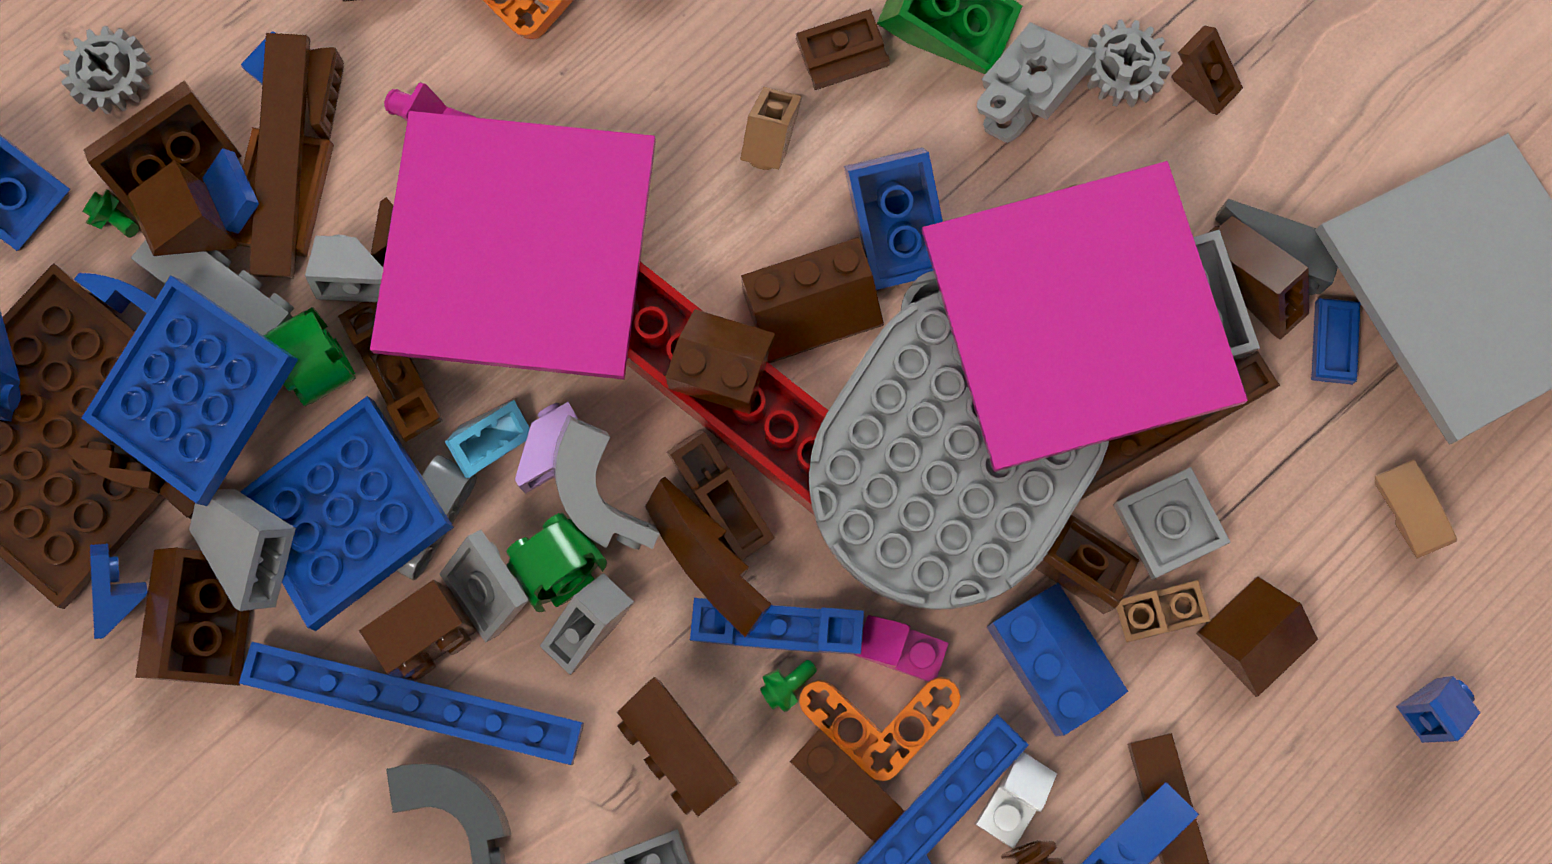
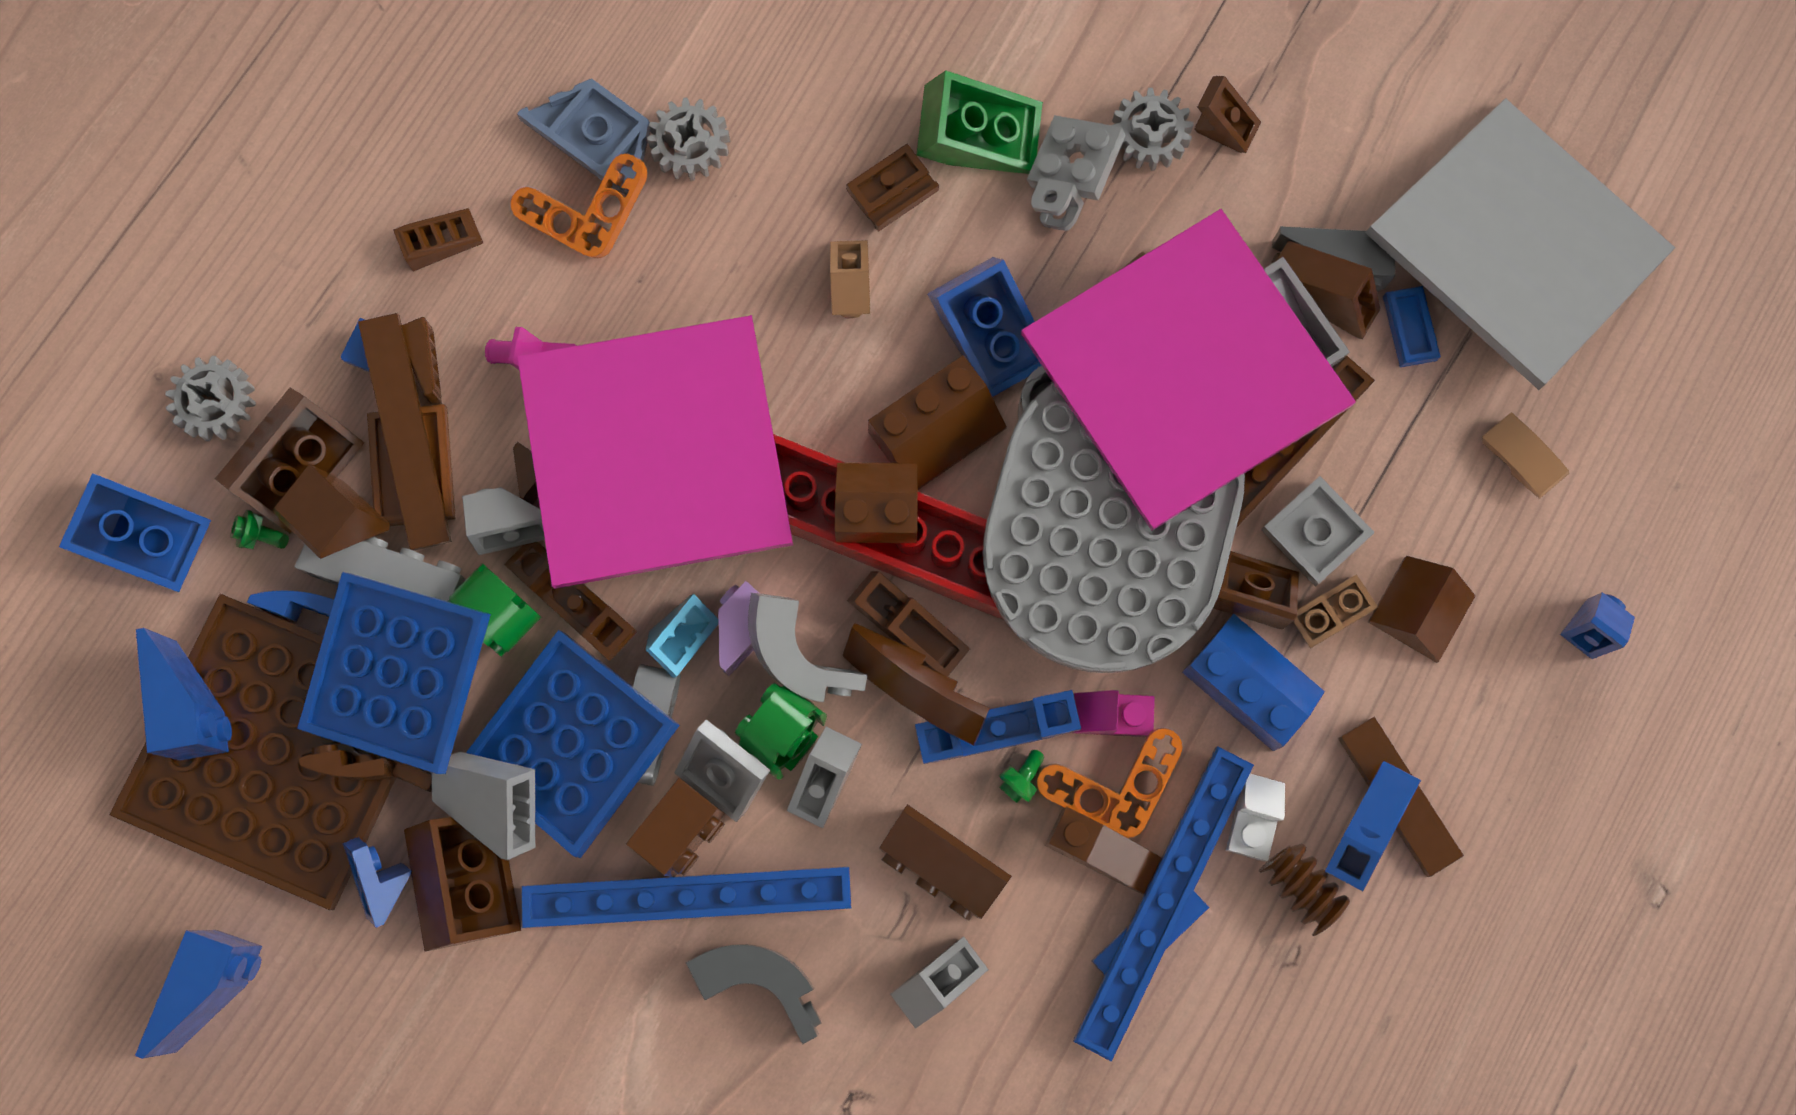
camera: 20 degrees left, 0 degrees up
(230, 191) = (367, 477): blue tile -> none

